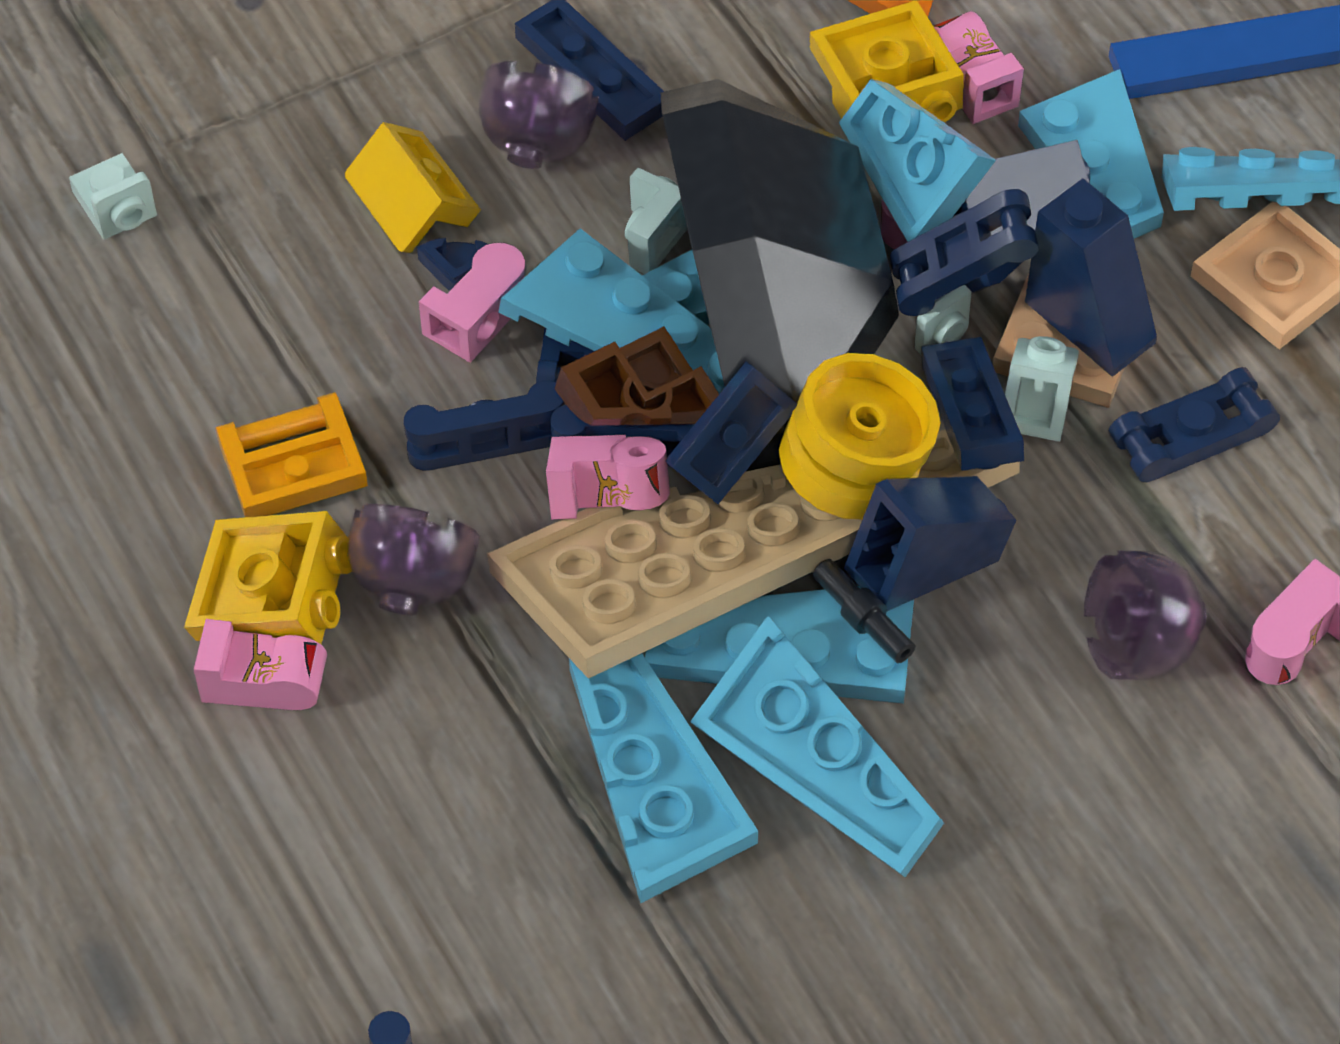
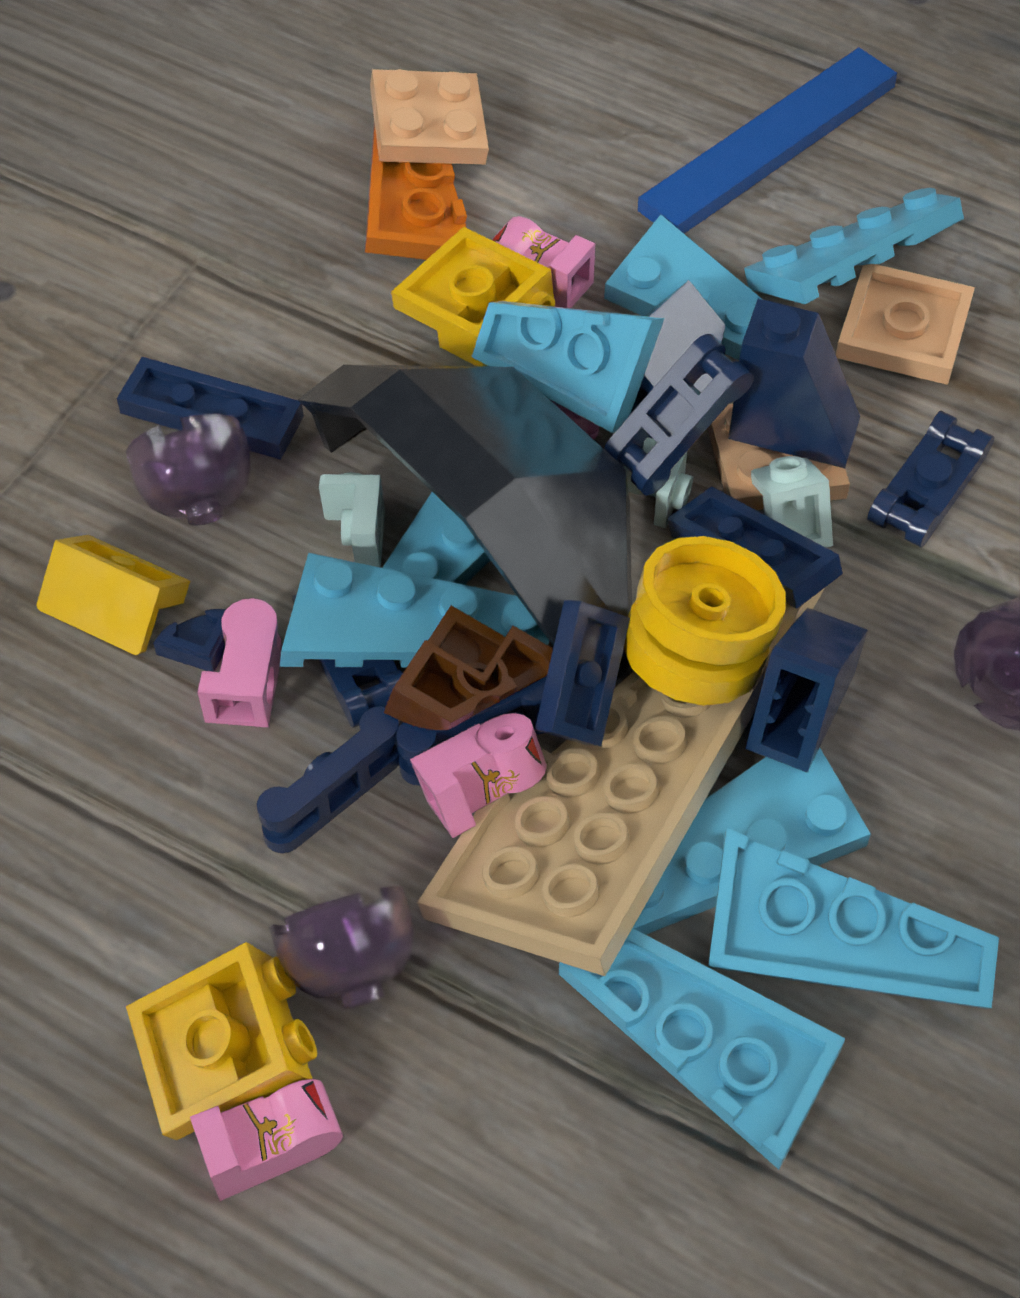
camera: 30 degrees left, 0 degrees up
(296, 469) = (172, 915): light orange plate -> none
(864, 611) = (794, 779): black bar -> none

